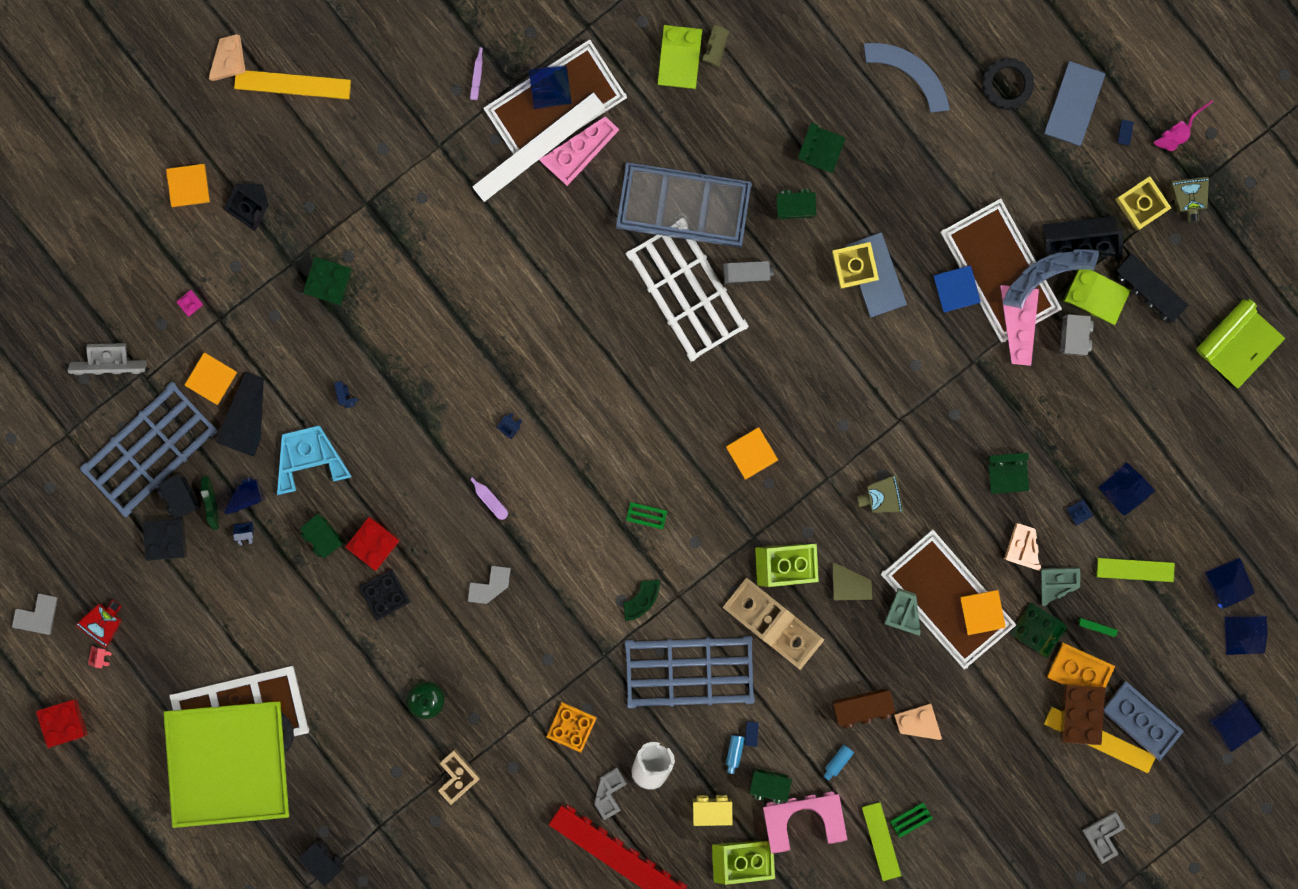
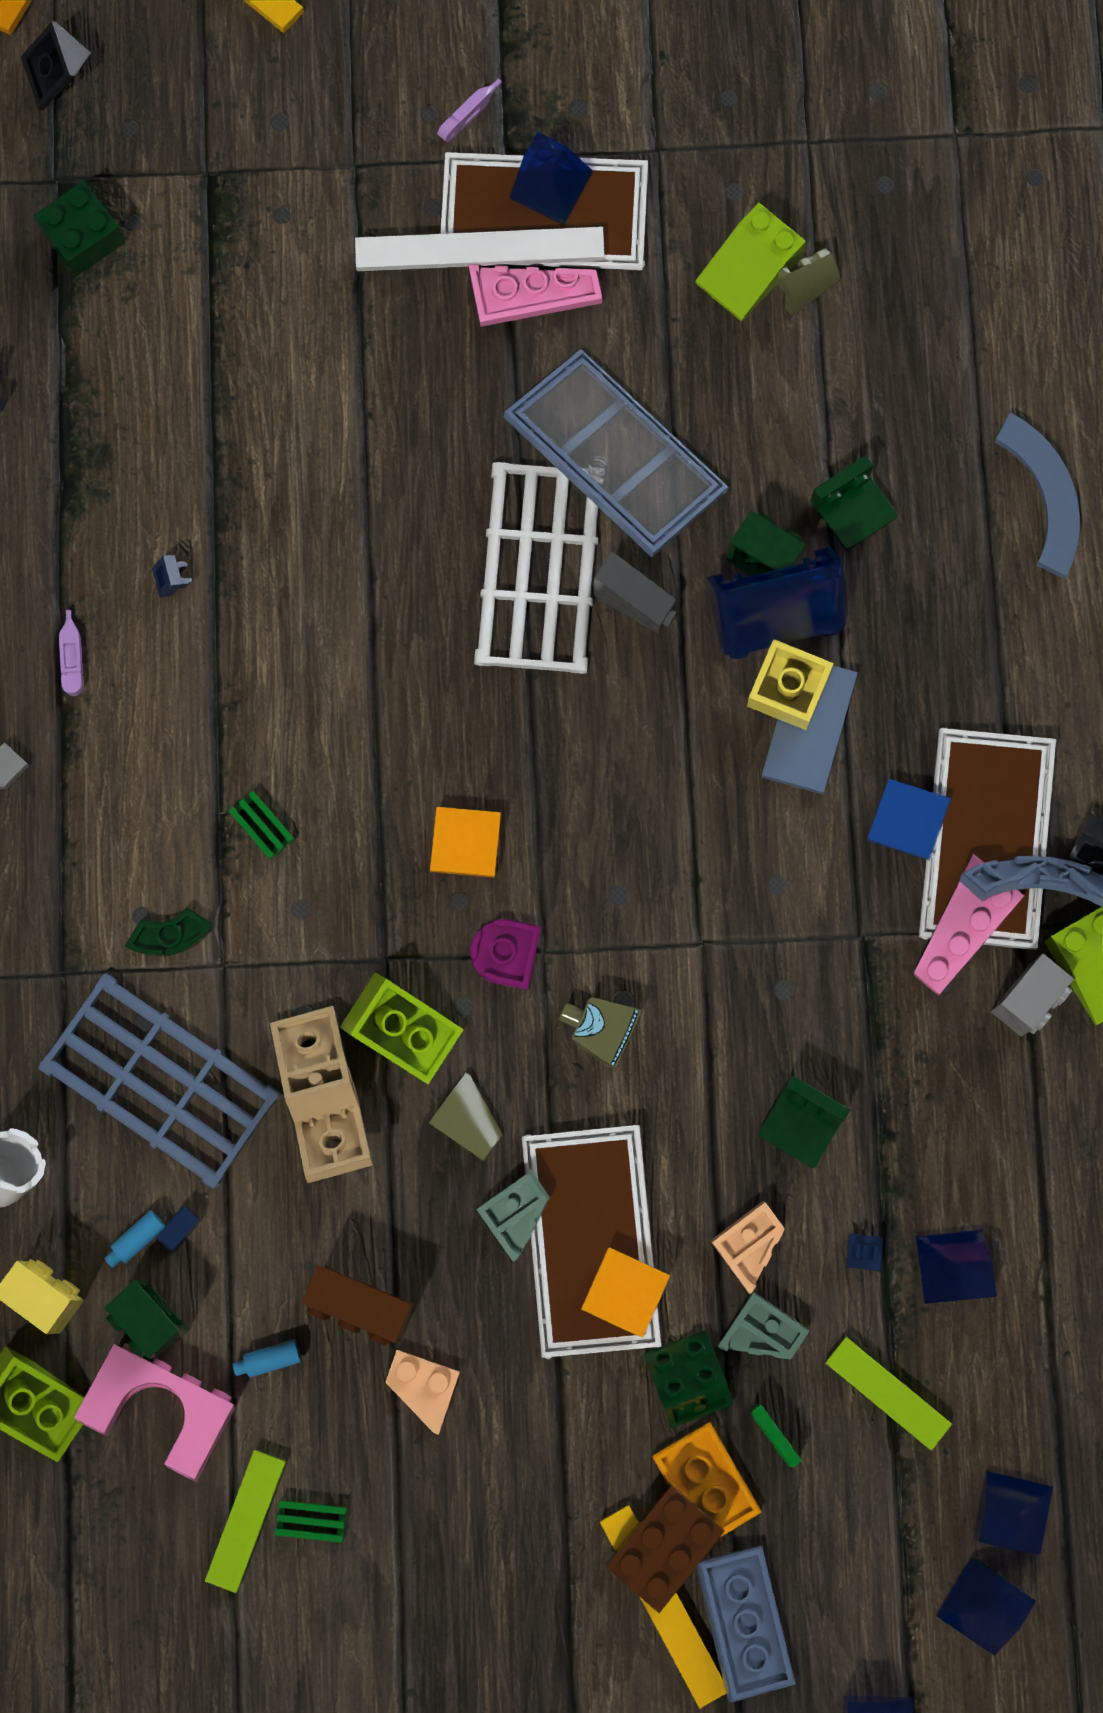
camera: 40 degrees right, 10 degrees down
(809, 492) = (505, 952): none -> magenta tile
(822, 230) = (779, 604): none -> clear blue windscreen

